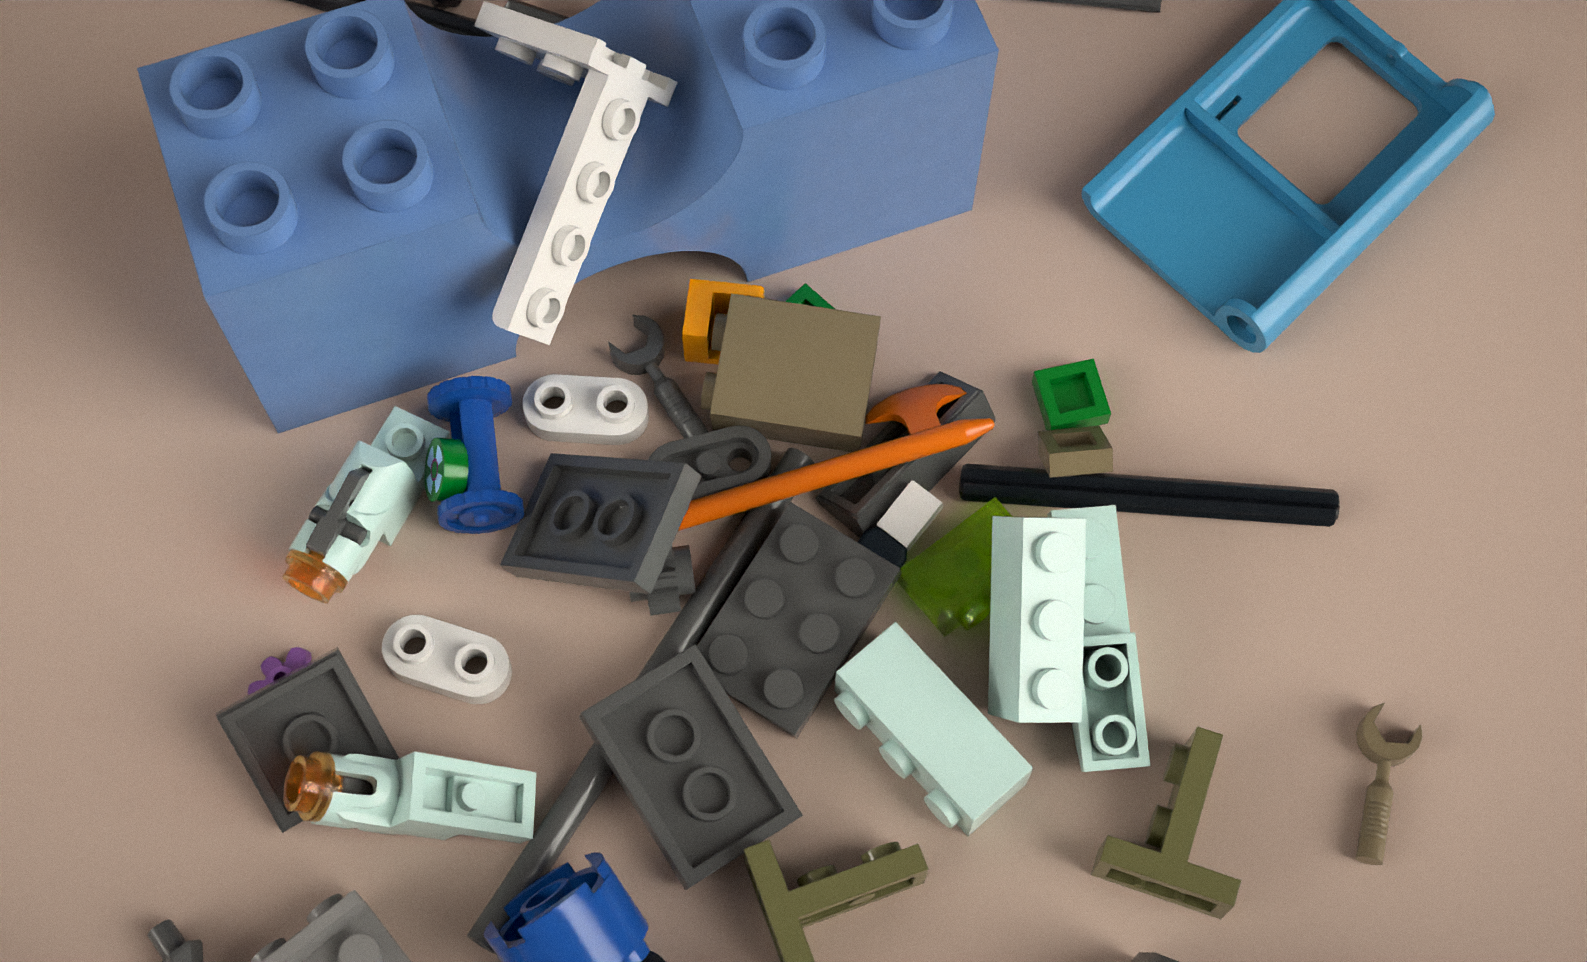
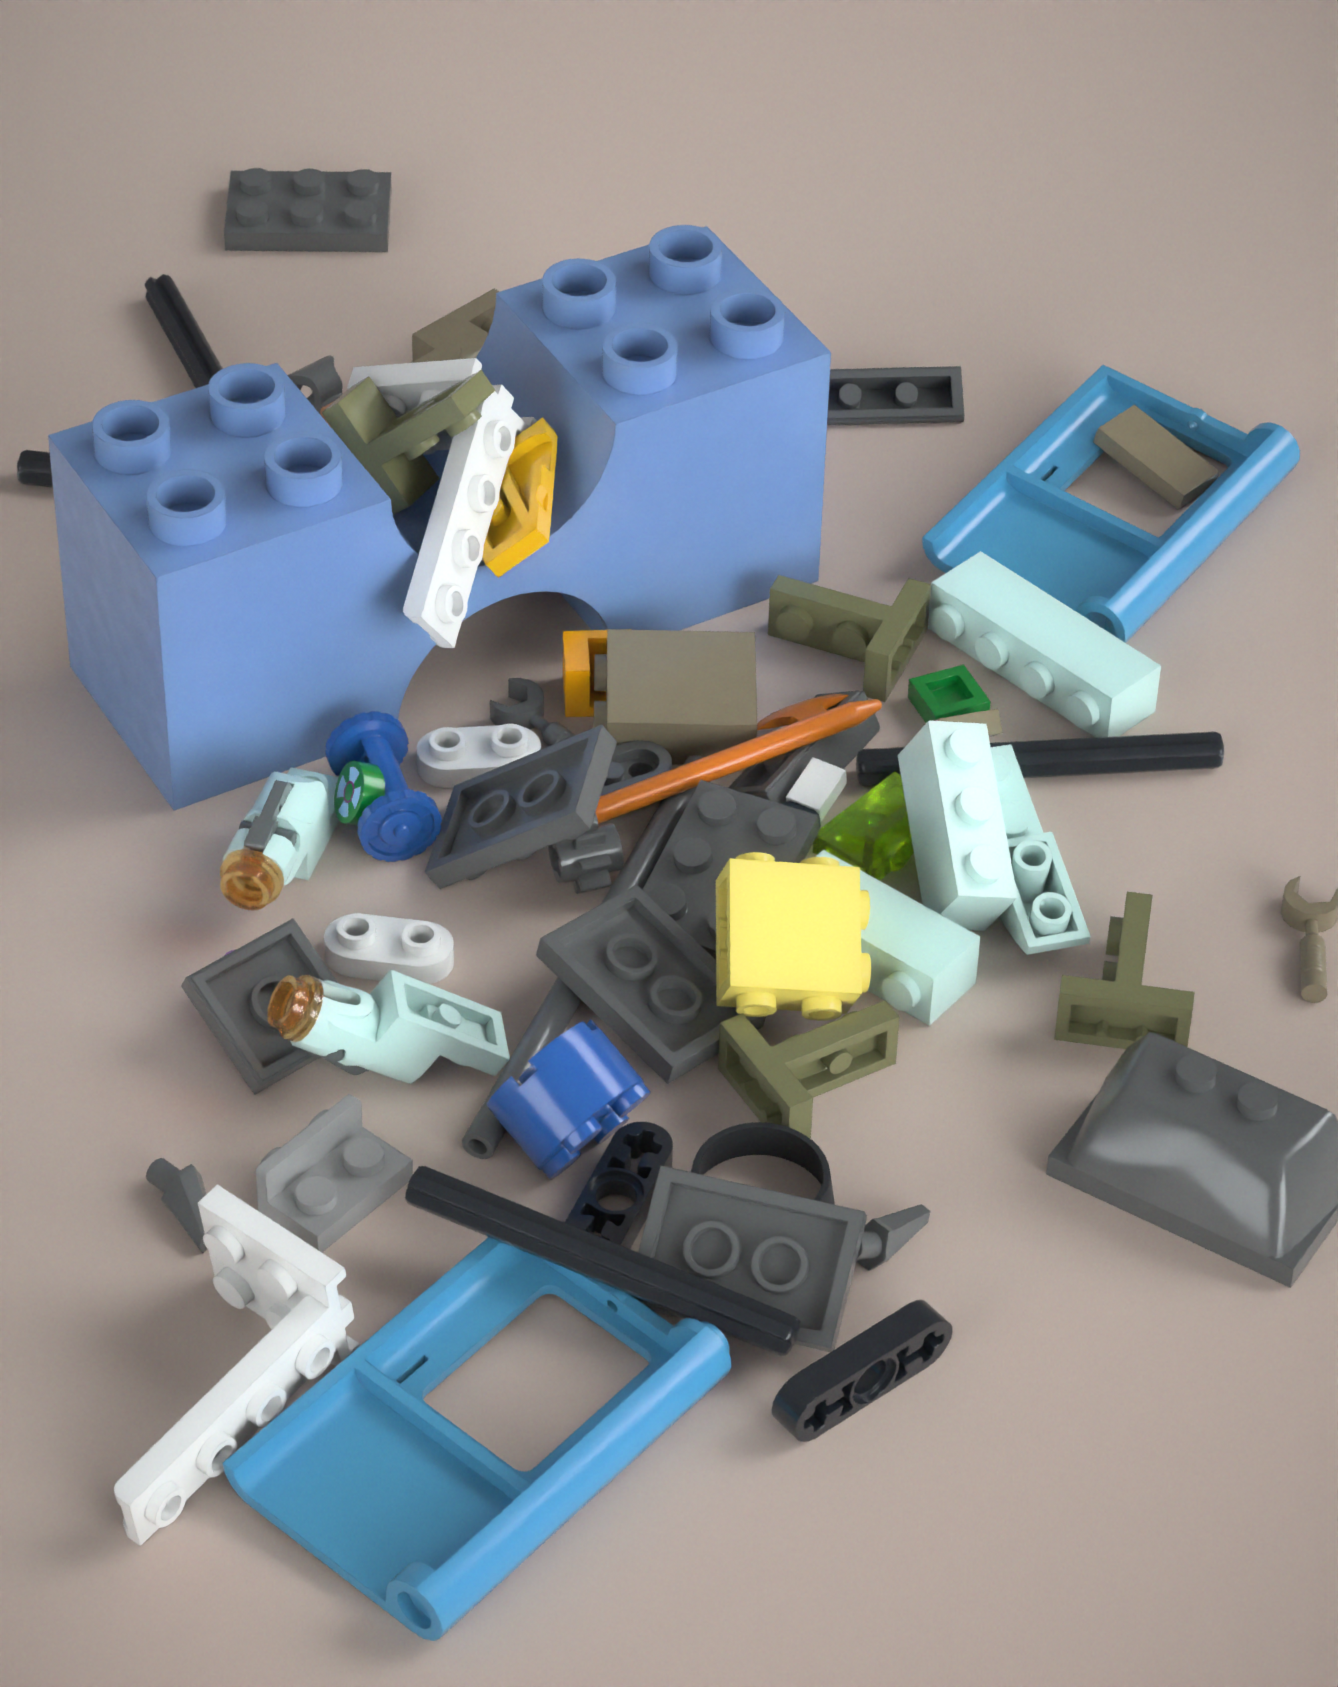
camera: 10 degrees left, 25 degrees down
(515, 108) = (393, 445): none -> olive bracket
(646, 180) = (525, 500): none -> yellow wing
(832, 762) = (790, 936): none -> light yellow brick
(992, 297) = (853, 626): none -> olive bracket
(1178, 350) = (1043, 647): none -> light aqua brick
(1344, 97) = (1156, 456): none -> dark tan tile

